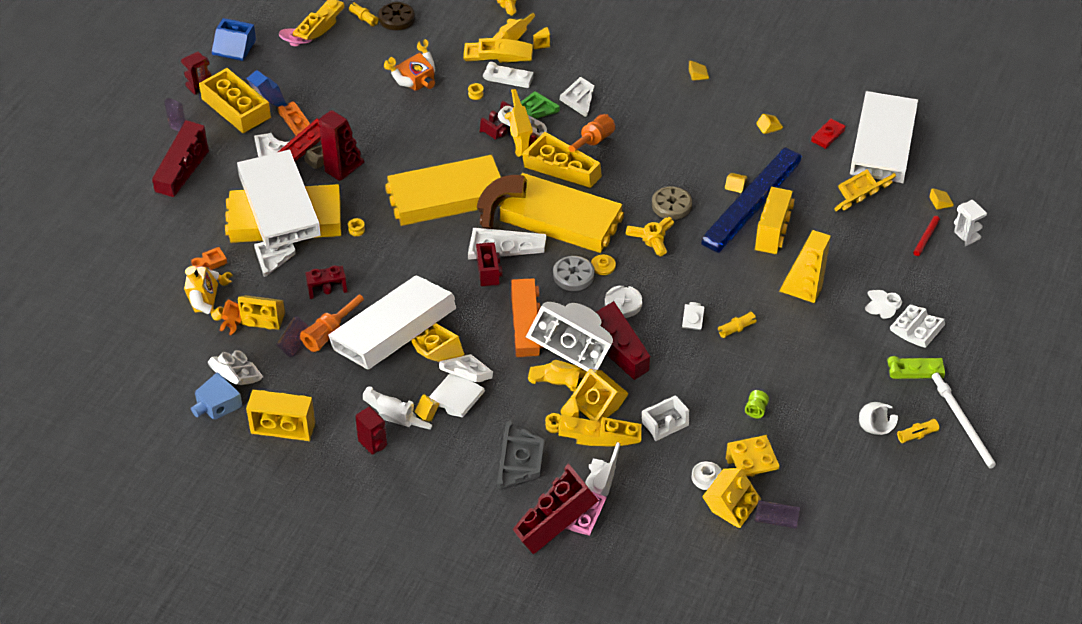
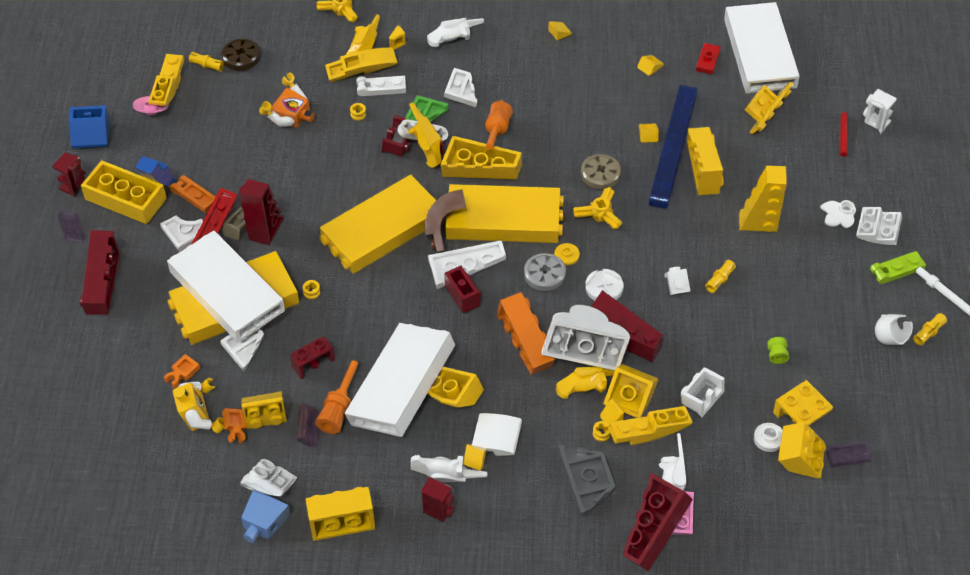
camera: 20 degrees left, 5 degrees up
(467, 367) = (495, 402): white wing -> none
(596, 45) = (452, 30): none -> white animal
(940, 199) = (838, 94): yellow slope -> none

